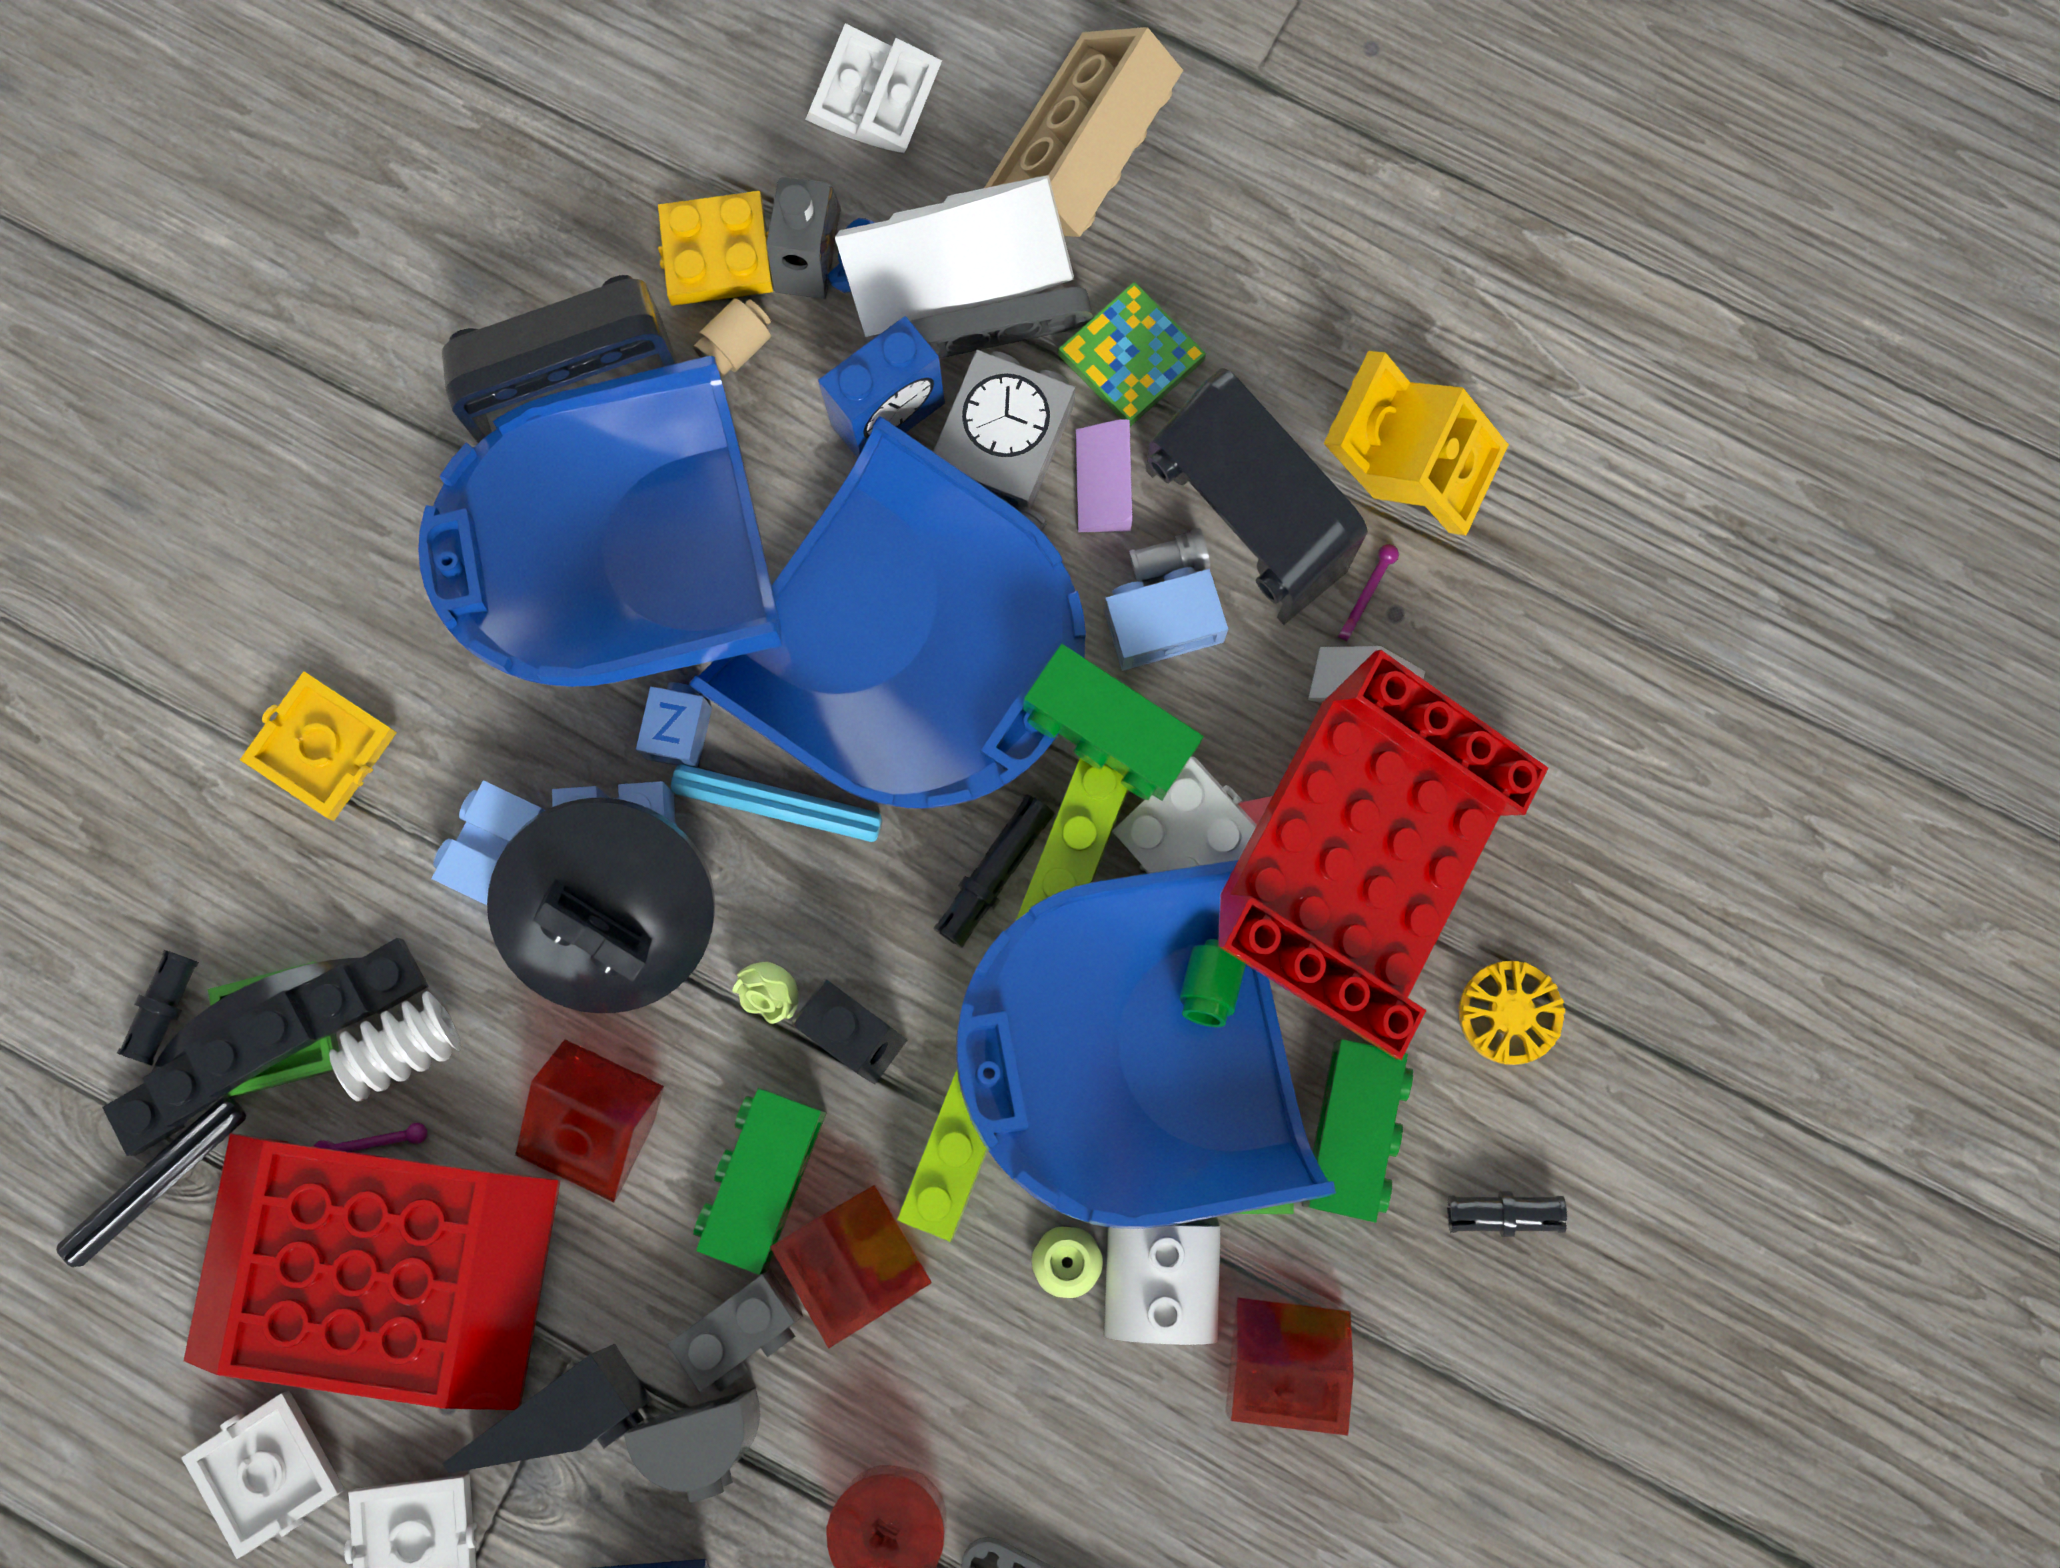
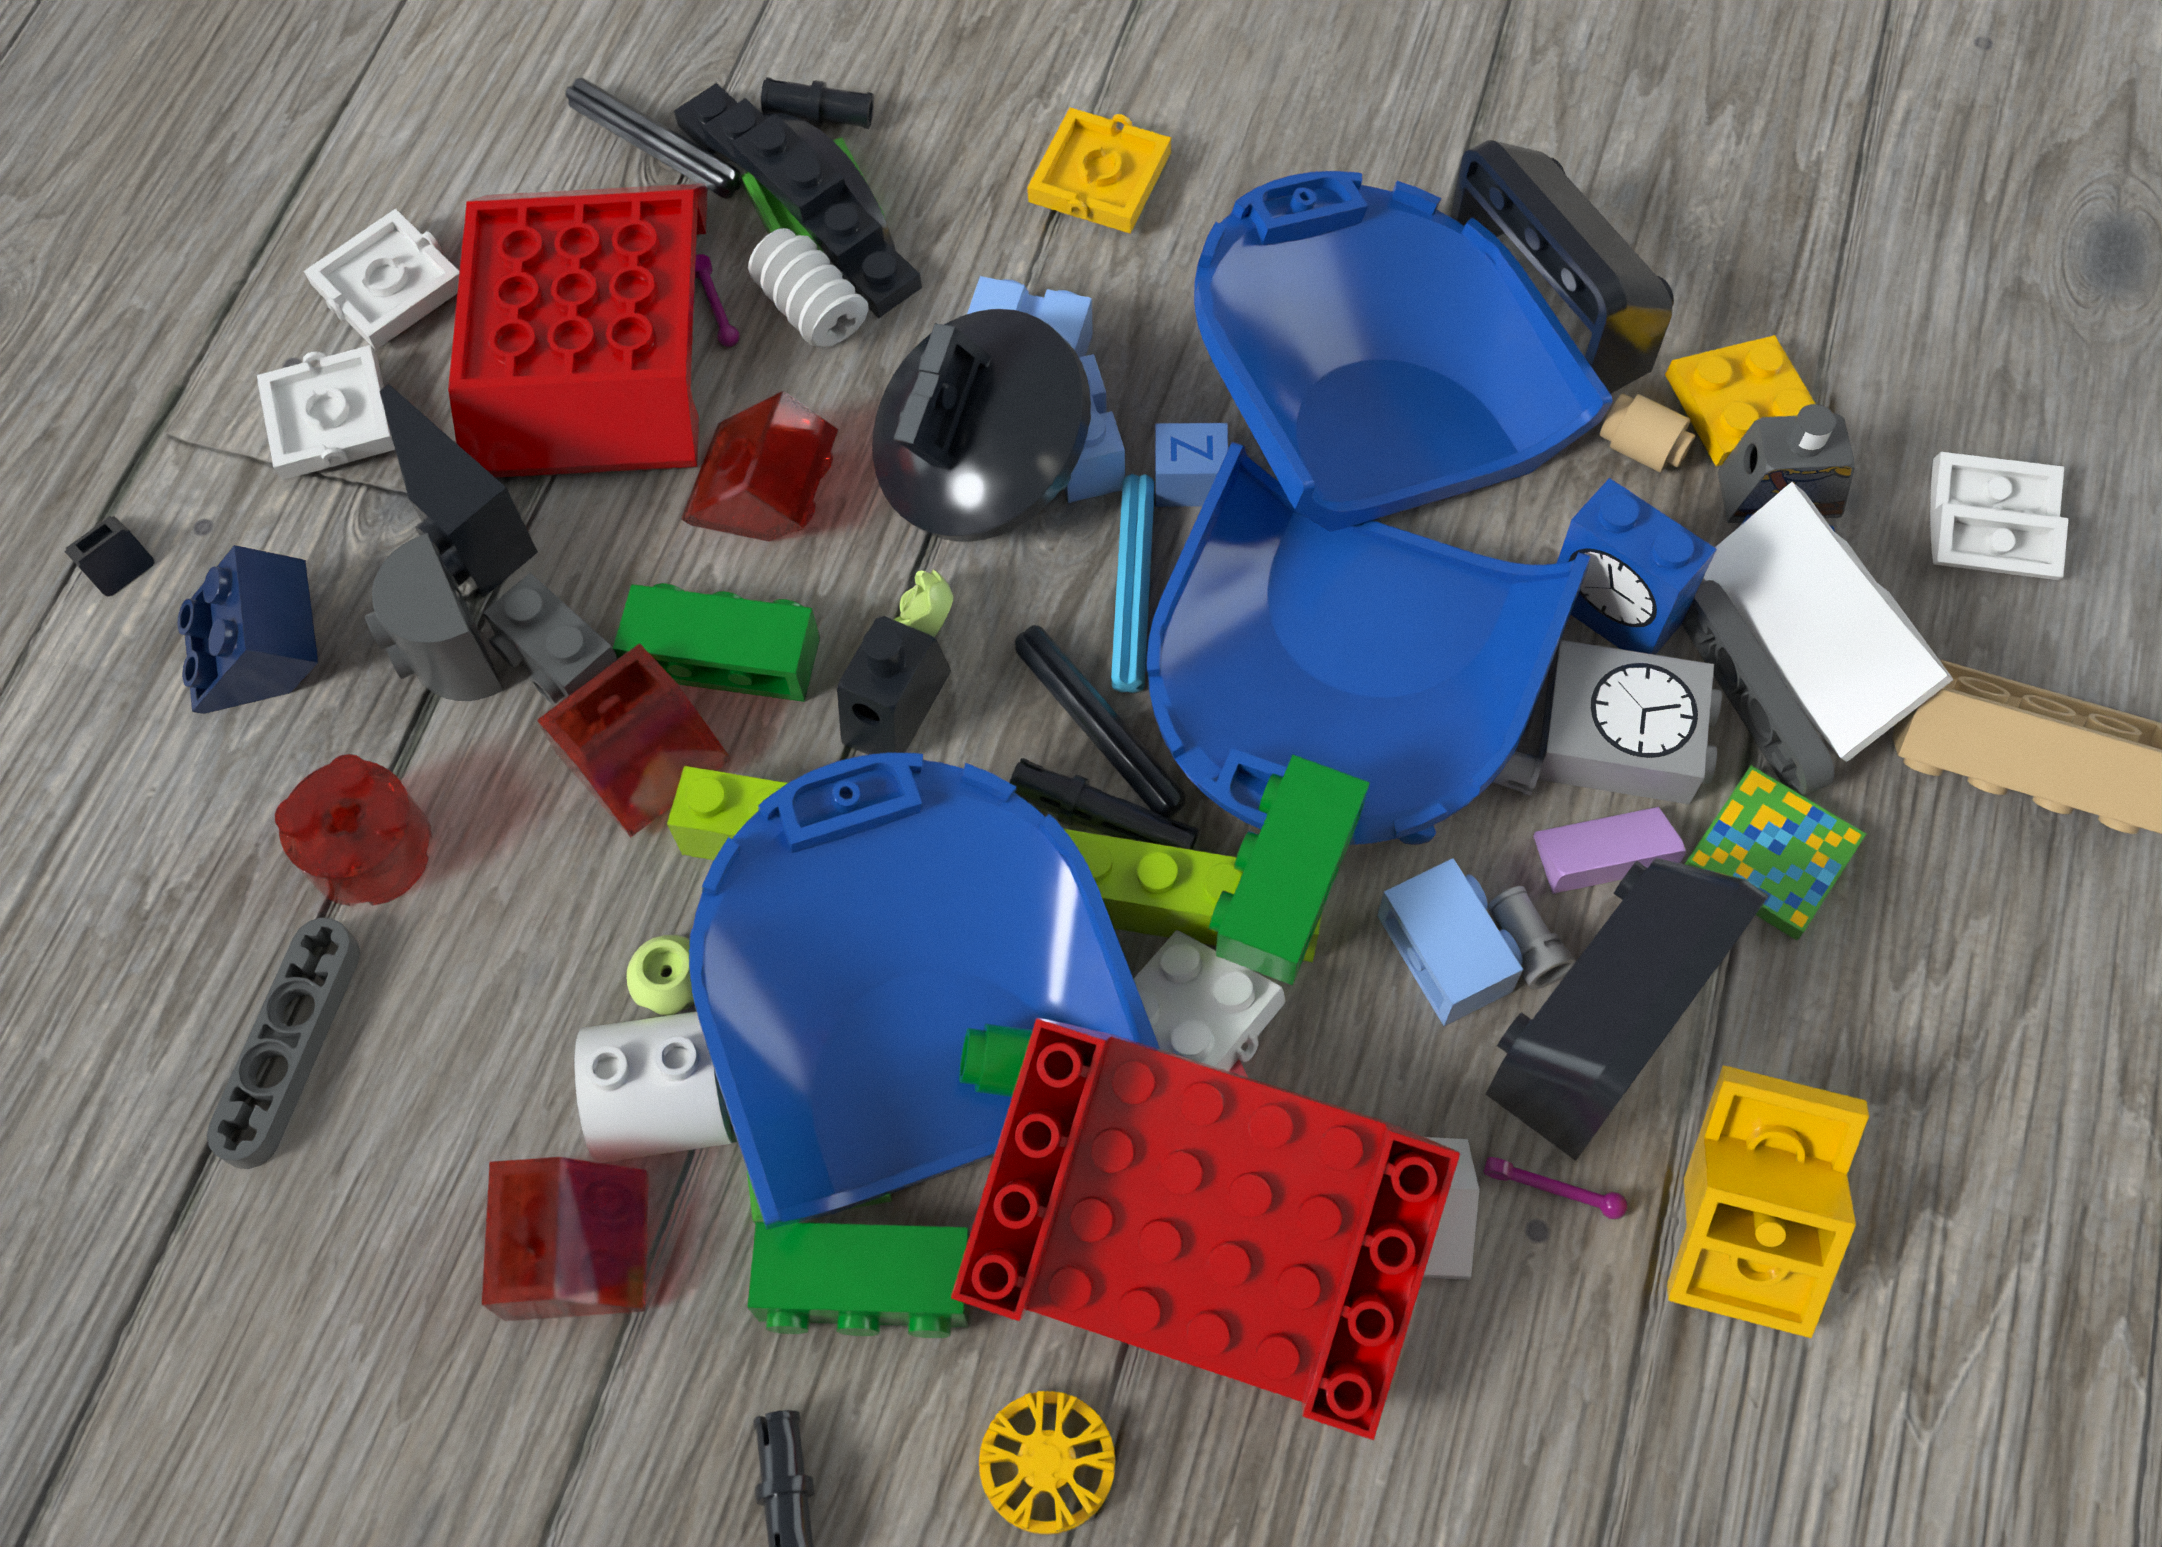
camera: 80 degrees right, 15 degrees down
(905, 858) = (1100, 722): none -> black axle

